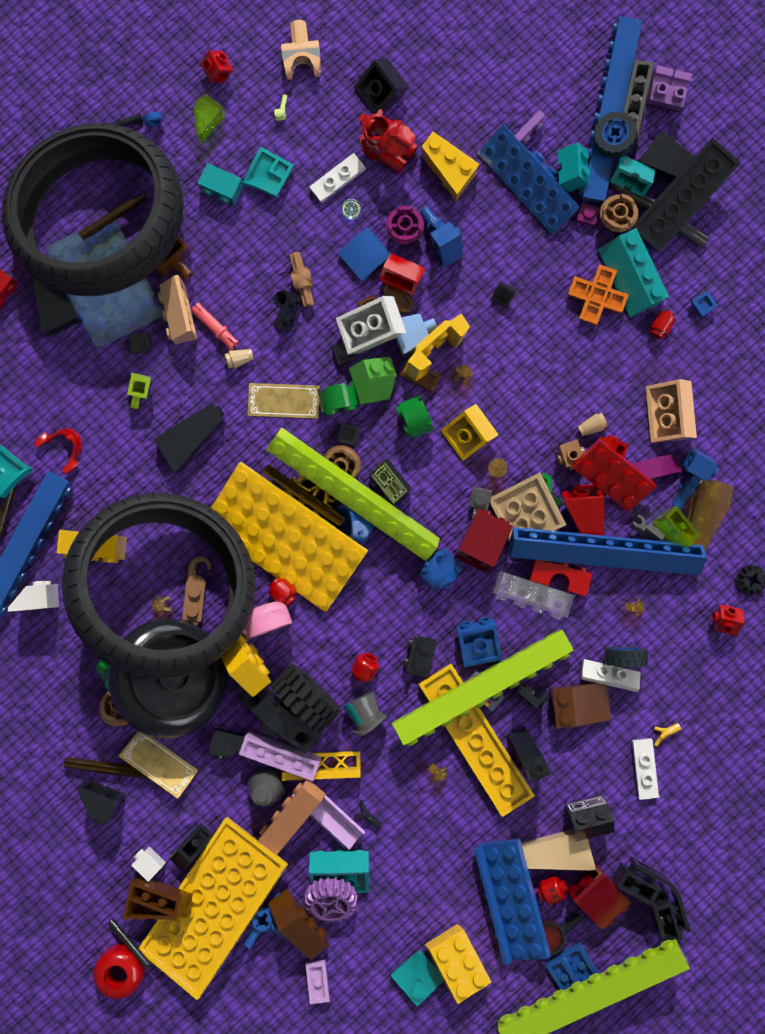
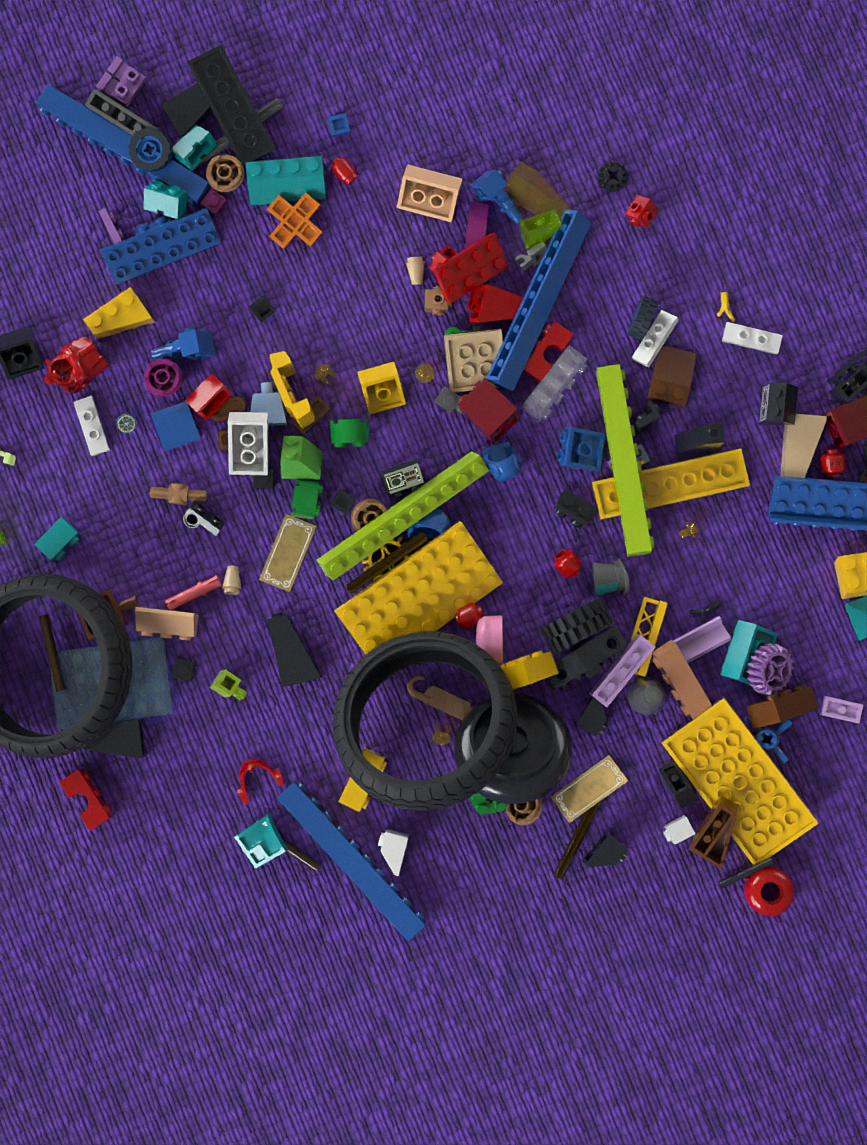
camera: 70 degrees left, 0 degrees up
(268, 173) = (63, 490): teal plate -> none
(639, 607) = (601, 290): clear yellow plate -> none

